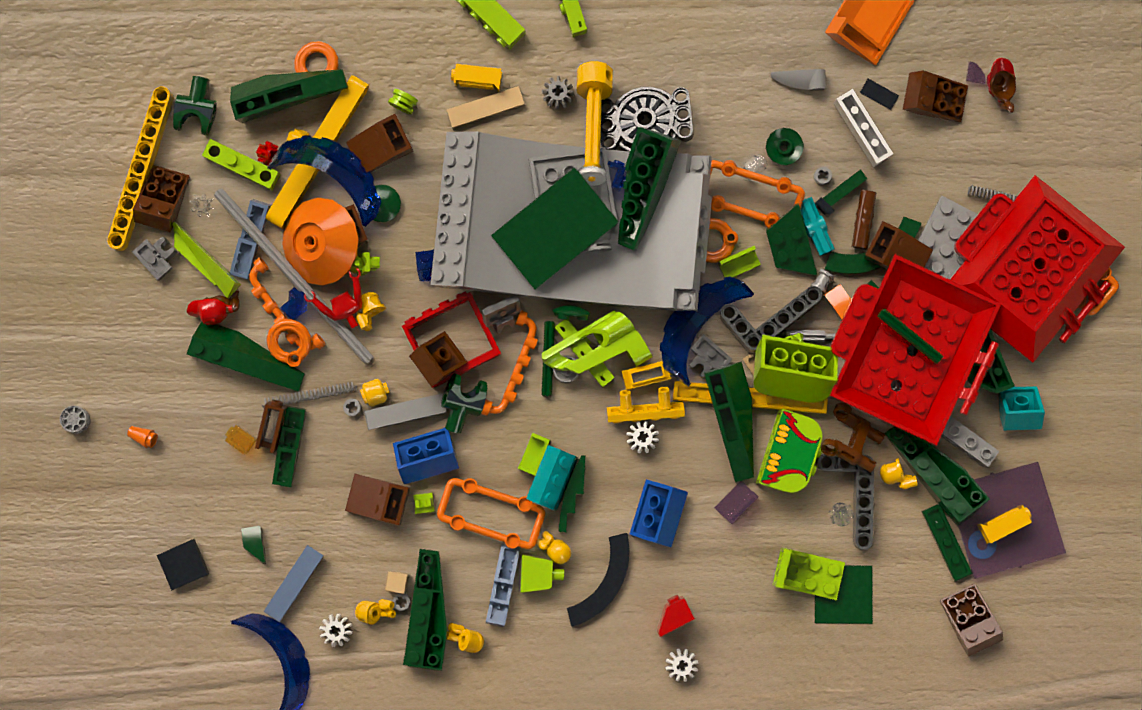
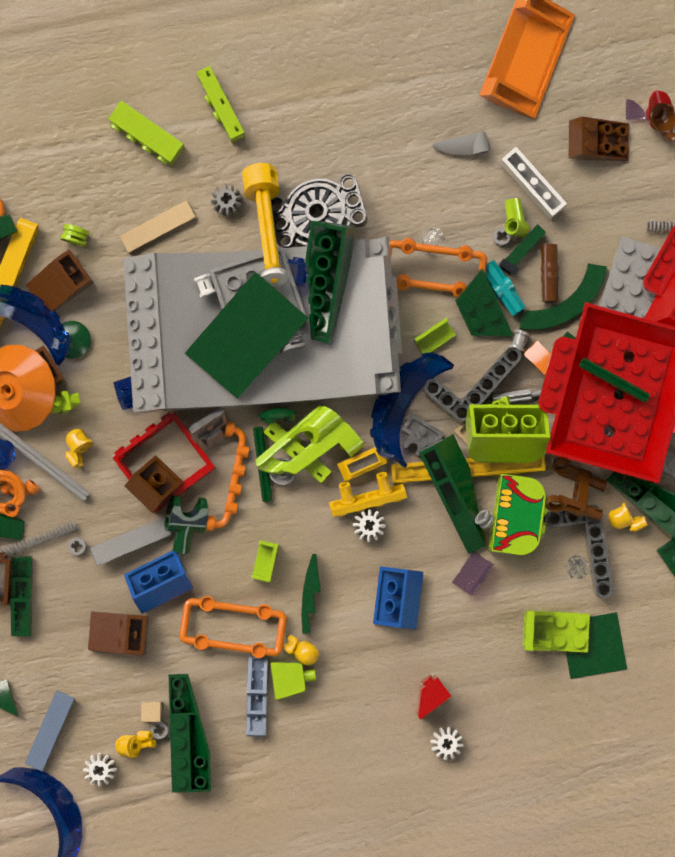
camera: 15 degrees left, 0 degrees up
(343, 305) = (50, 447): red piece -> none
(374, 392) = (96, 527): yellow head -> none
(424, 503) = (165, 628): lime tile -> none
(467, 639) = (231, 755): yellow piece -> none
(477, 77) = (144, 198): yellow window -> none
(520, 178) = (204, 278): none -> white bush
(552, 478) = (287, 581): teal slope -> none
(608, 587) = (362, 677): black tile -> none
(728, 246) = (420, 323): orange piece -> none
(757, 451) = (484, 519): none -> light grey bush
(786, 137) = (461, 205): dark green dish -> none
(839, 160) = (515, 221): none -> lime piece
(879, 94) = (543, 146): black sticker -> none
(891, 241) = (581, 289): reddish brown slope -> none

